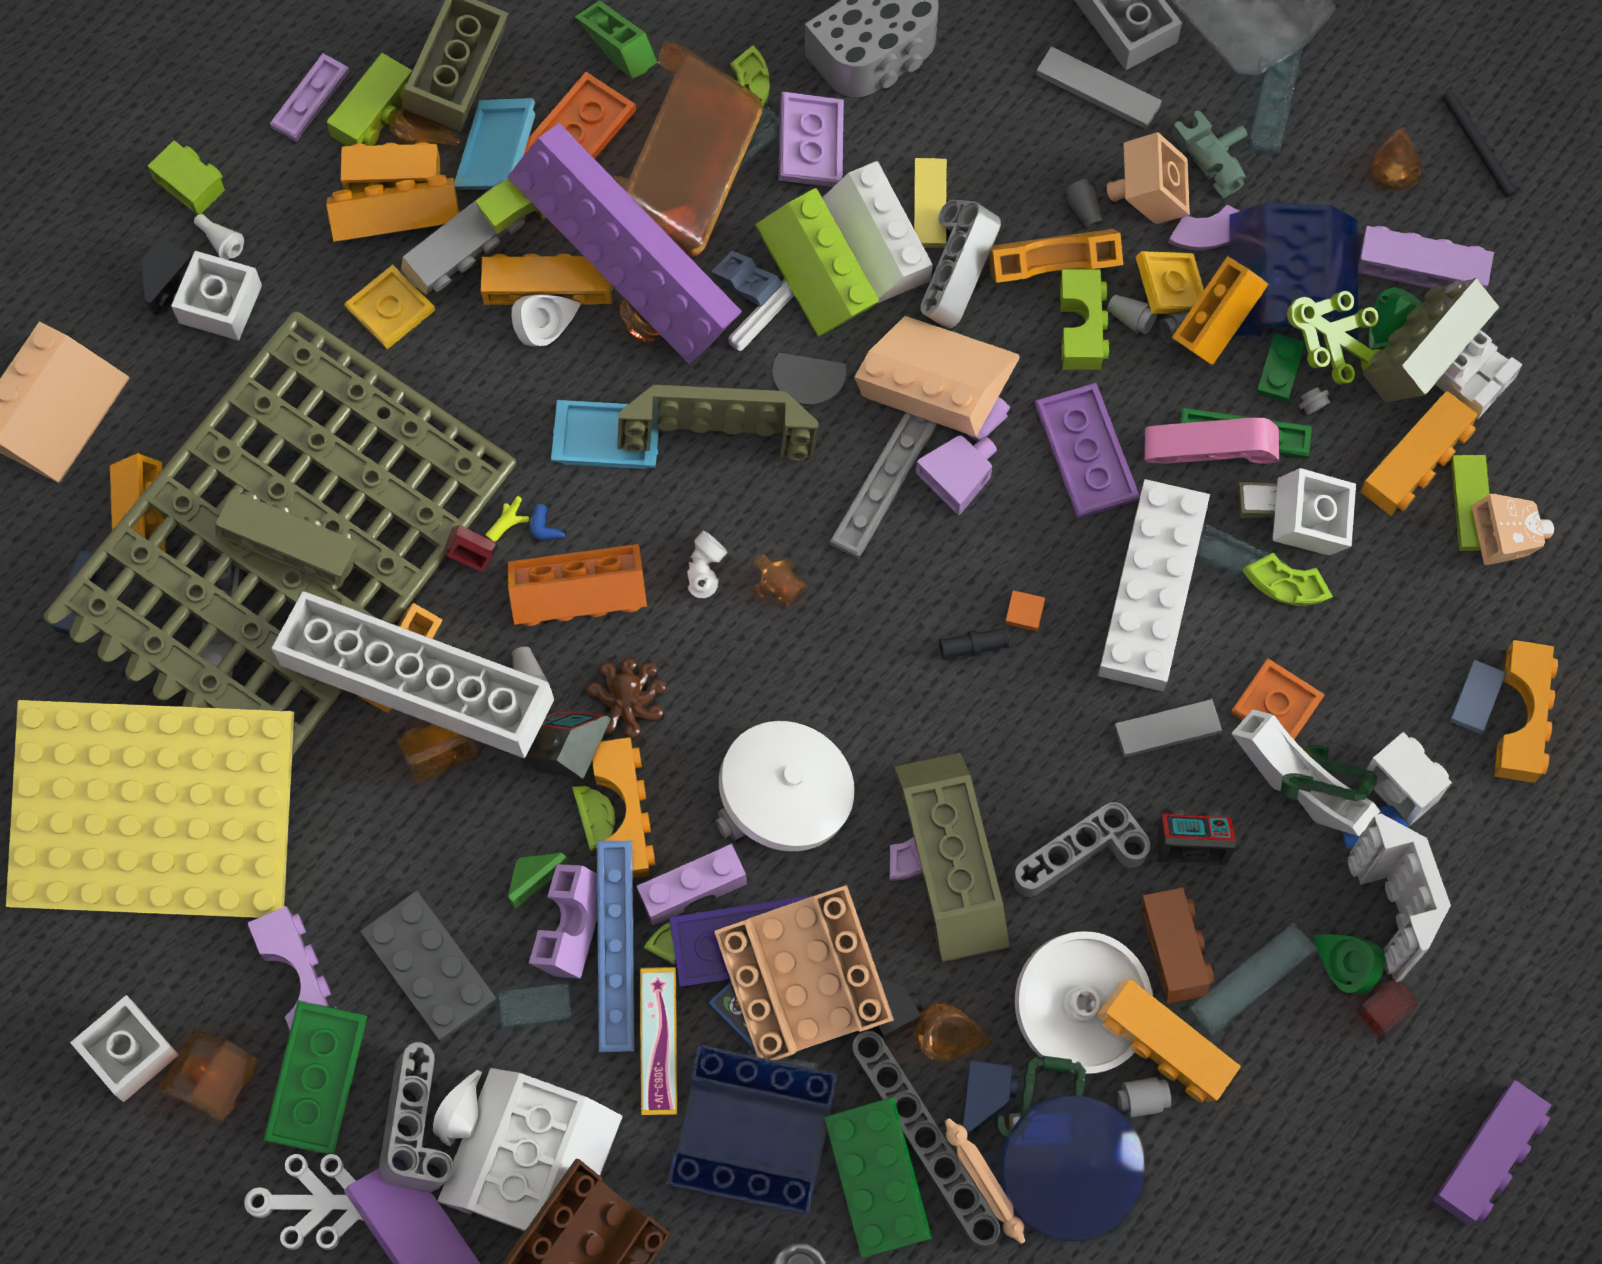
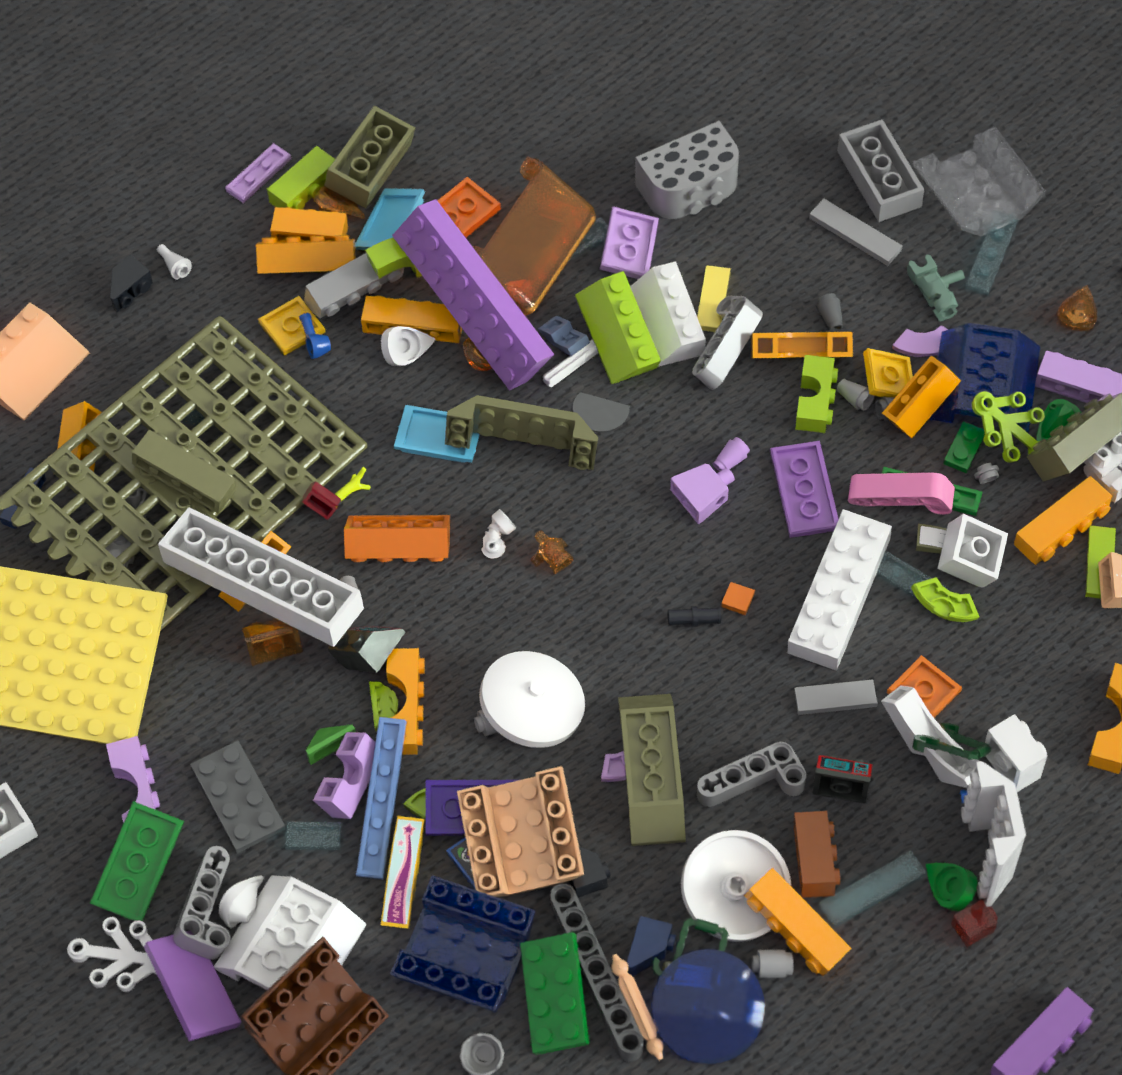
camera: 10 degrees right, 10 degrees down
(187, 177) = (157, 217): lime brick -> none
(208, 1074) = (58, 851): clear orange slope -> none
(216, 295) = (164, 300): white brick -> none
(430, 327) = (317, 342): none -> blue bar
(537, 525) = (375, 493): blue animal -> none
(618, 39) = (496, 157): bright green slope -> none
(627, 695) = (423, 621): reddish brown animal -> none
(676, 889) = (463, 755): lavender arch -> none
(753, 73) = (593, 192): lime tile -> none
(882, 484) = (666, 466): light grey tile -> none
(936, 374) = (695, 419): light nougat slope -> none
(948, 1033) = (627, 896): clear orange piece -> none
(1153, 179) = (886, 298): light nougat brick -> none
(1477, 697) = (1083, 704): sand blue tile -> none

